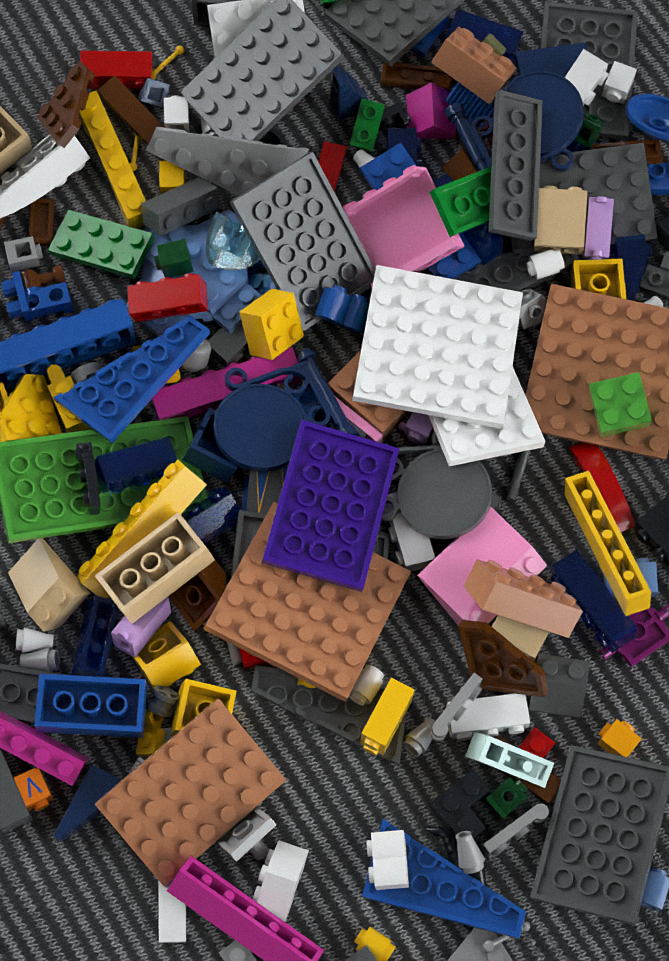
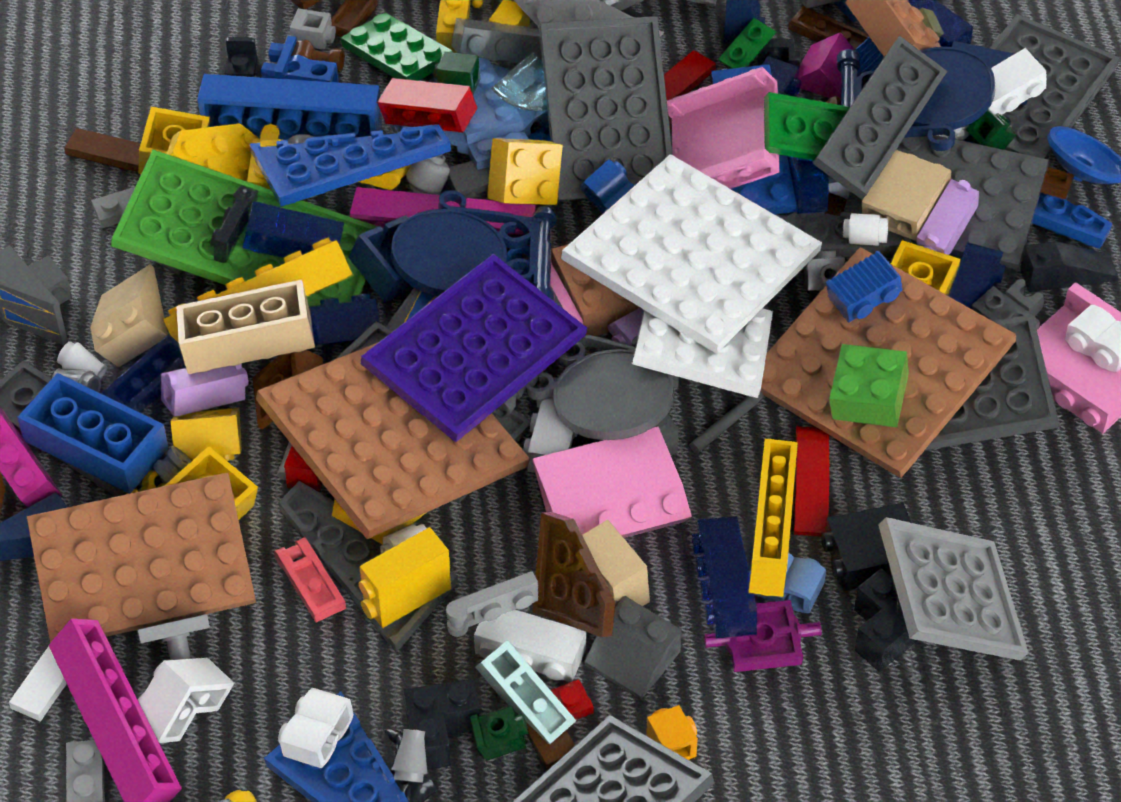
camera: 30 degrees right, 20 degrees down
(308, 739) = (310, 580): none -> coral plate
(419, 739) = (432, 633): light grey cone -> none
(516, 829) = (488, 771): light grey plate -> none
(522, 597) = (634, 518): nougat brick -> none
(576, 323) = (864, 287): none -> blue brick
(619, 82) = (1056, 105): white brick -> none

